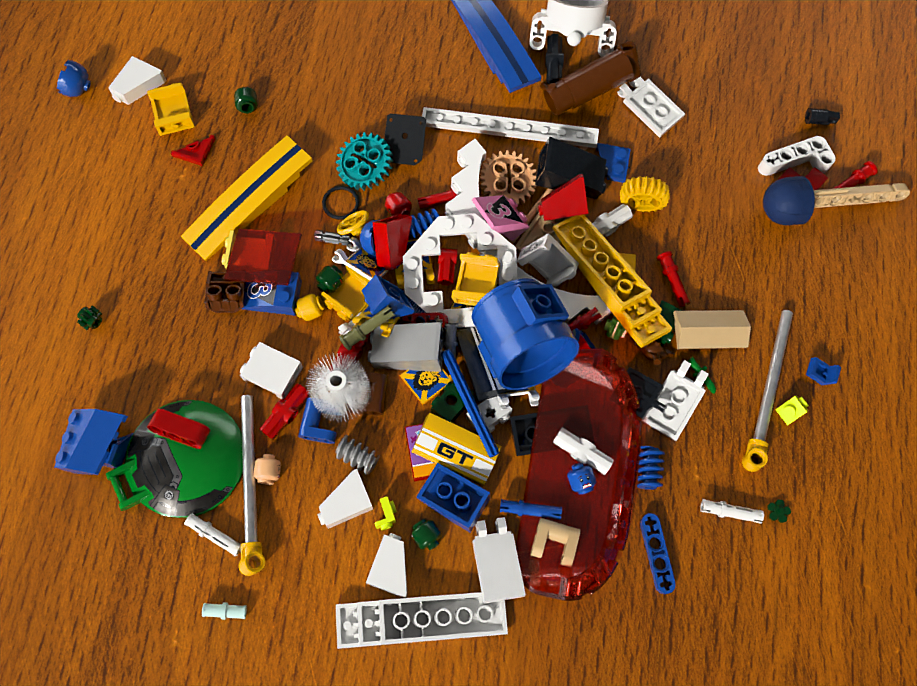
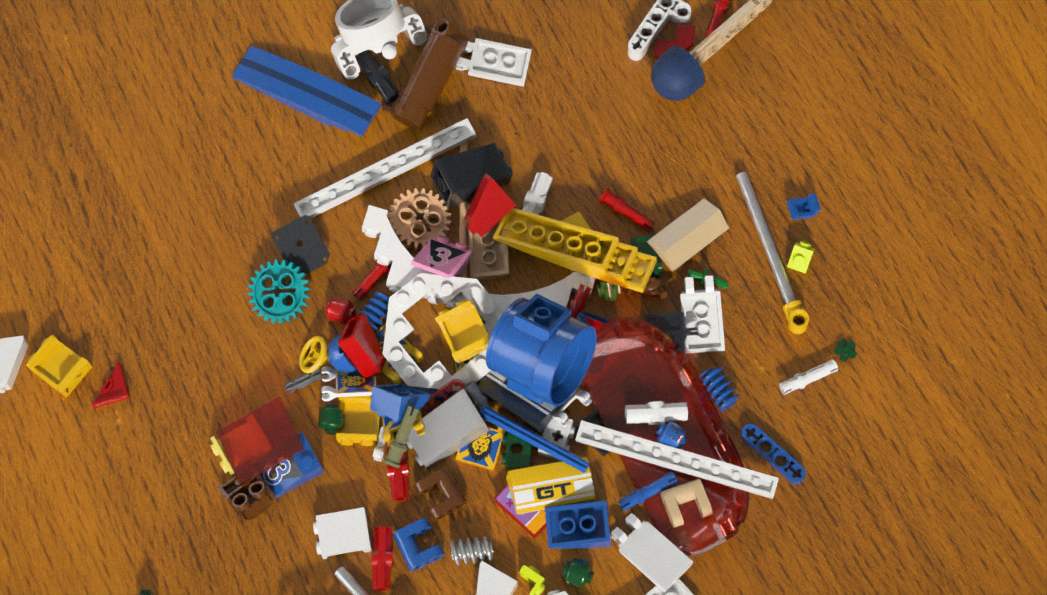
camera: 30 degrees left, 0 degrees up
(245, 100) = (123, 309): dark green head -> none
(247, 197) = (199, 398): yellow slope -> none
(309, 307) = (333, 456): yellow head -> none
(340, 188) = (284, 327): black piece -> none
(340, 390) = (419, 503): white piece -> none
(447, 263) = (424, 335): red piece -> none
(549, 260) = (512, 269): white panel -> none
(574, 503) = (677, 459): none -> white plate
(617, 161) = (502, 135): blue wing -> none
(644, 194) = (550, 152): yellow gear -> none

